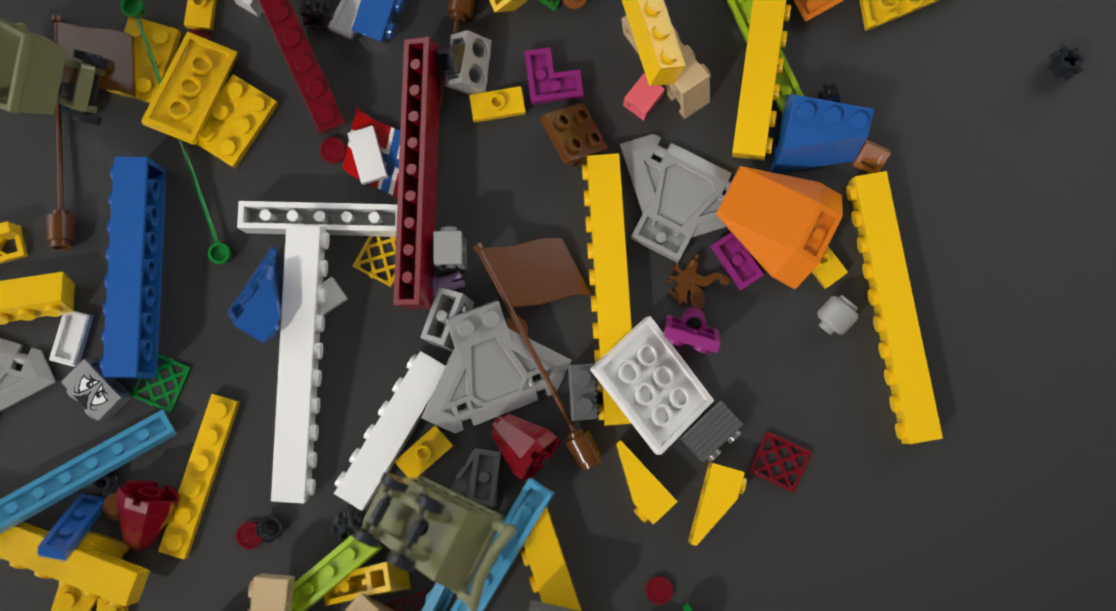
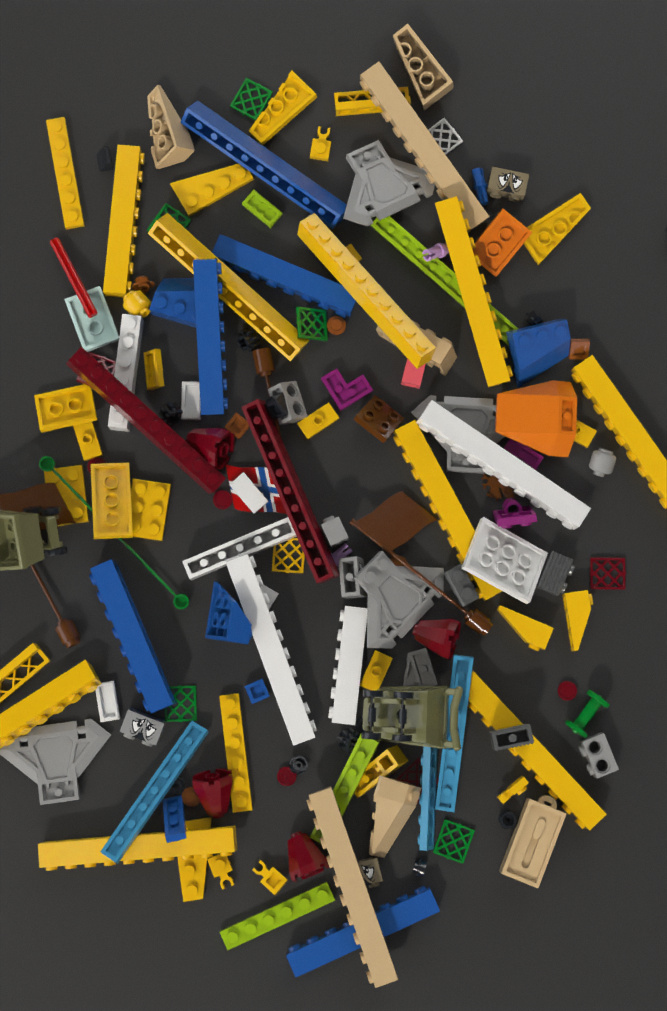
camera: 30 degrees left, 0 degrees up
(261, 410) = (257, 691): none -> blue plate
(349, 75) = (212, 444): none -> dark red cone
(391, 66) = (237, 426): none -> dark orange plate
(706, 262) = (503, 465): none -> white brick

